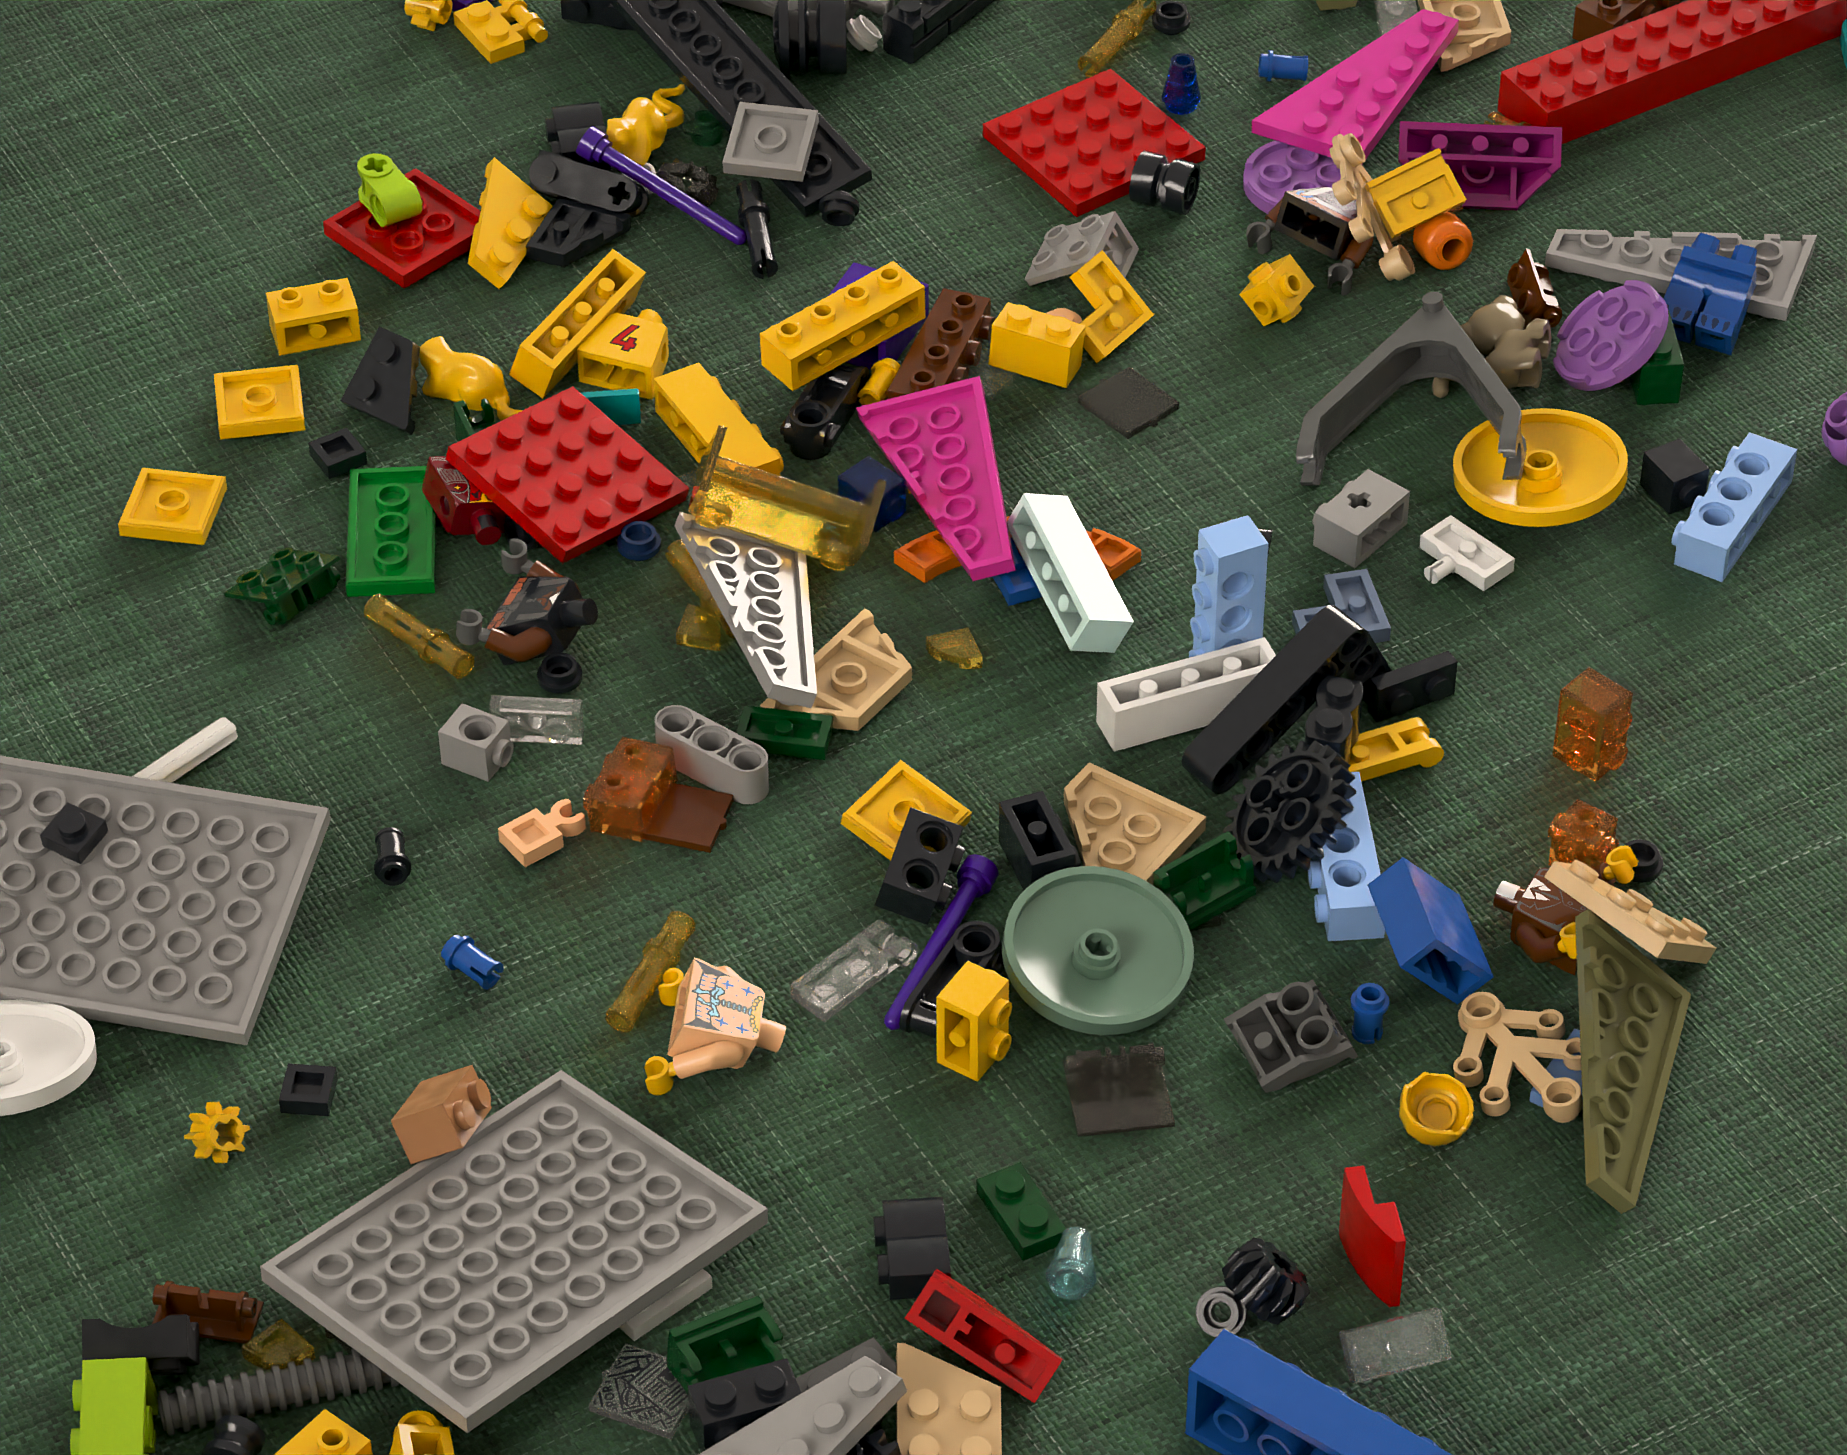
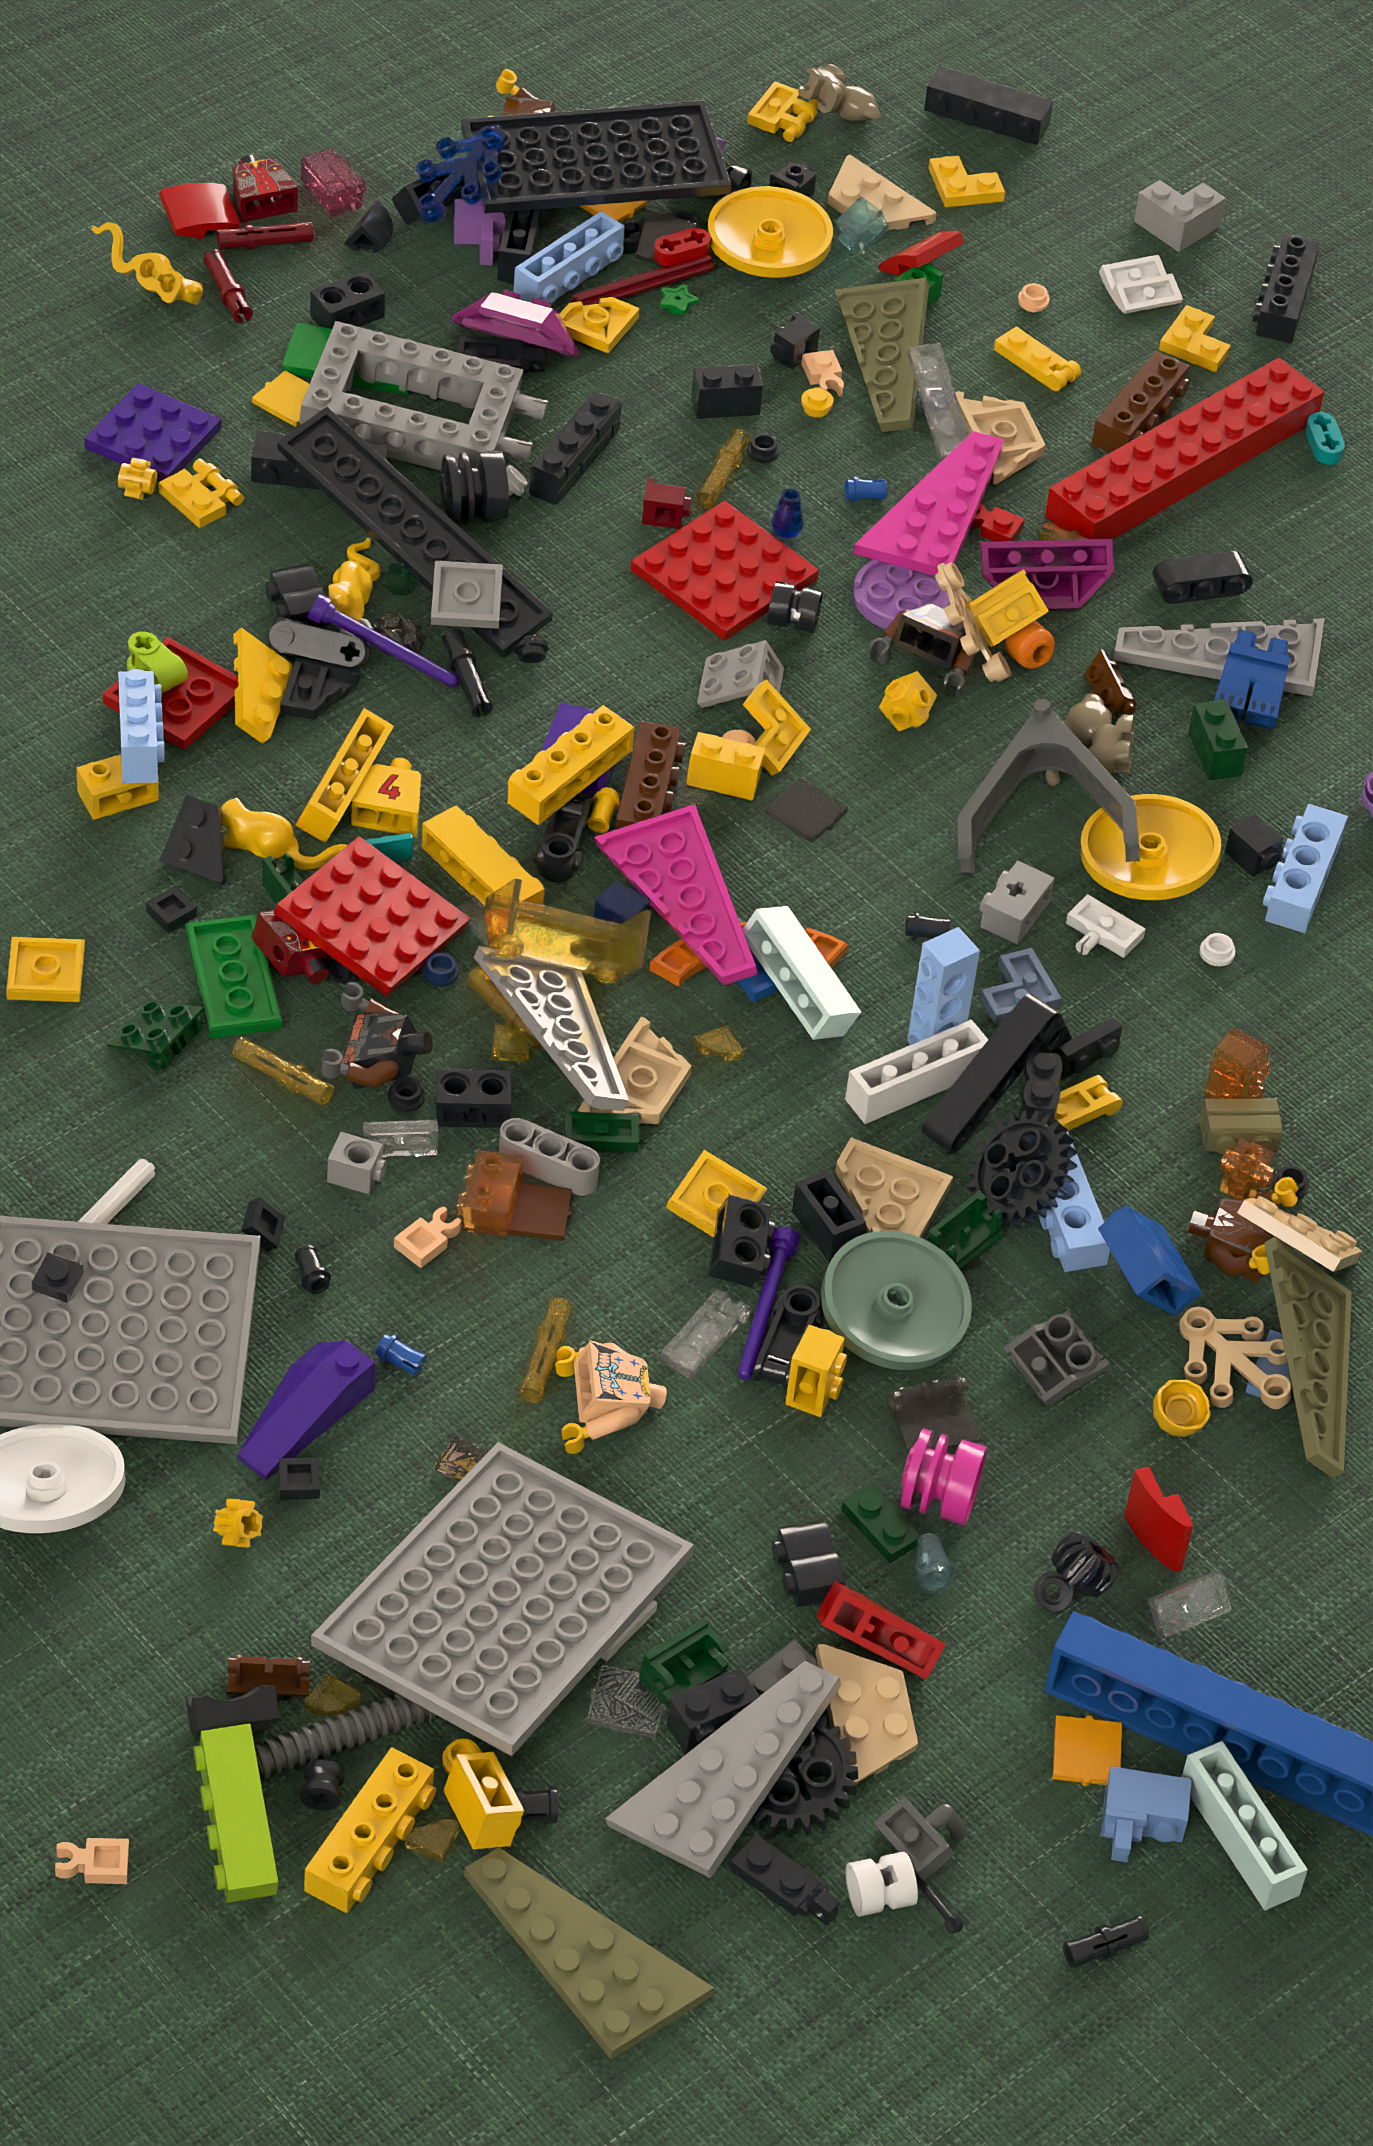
camera: 15 degrees left, 5 degrees up
(259, 402) = (92, 867): yellow plate -> none
(343, 250) = (140, 726): none -> light blue brick
(345, 1008) = (307, 1403): none -> dark purple wedge
(346, 800) = (264, 1222): none -> black plate
(442, 1114) = (419, 1491): medium nougat brick -> none
(511, 1083) = (459, 1458): none -> clear smoke tile
(635, 681) = (473, 1098): none -> black brick
(1037, 68) = (665, 505): none -> dark red brick
(1105, 1159) = (943, 1476): none -> dark pink wheel
(1369, 1006) = (1114, 1326): blue pin -> none
(1434, 110) = (998, 524): none -> red plate
(1596, 780) = (1230, 1119): none -> olive brick
(1603, 590) = (1217, 950): none -> white plate
(1610, 336) = (1184, 725): medium lavender tile -> none
(1674, 183) = (1202, 577): none -> black beam

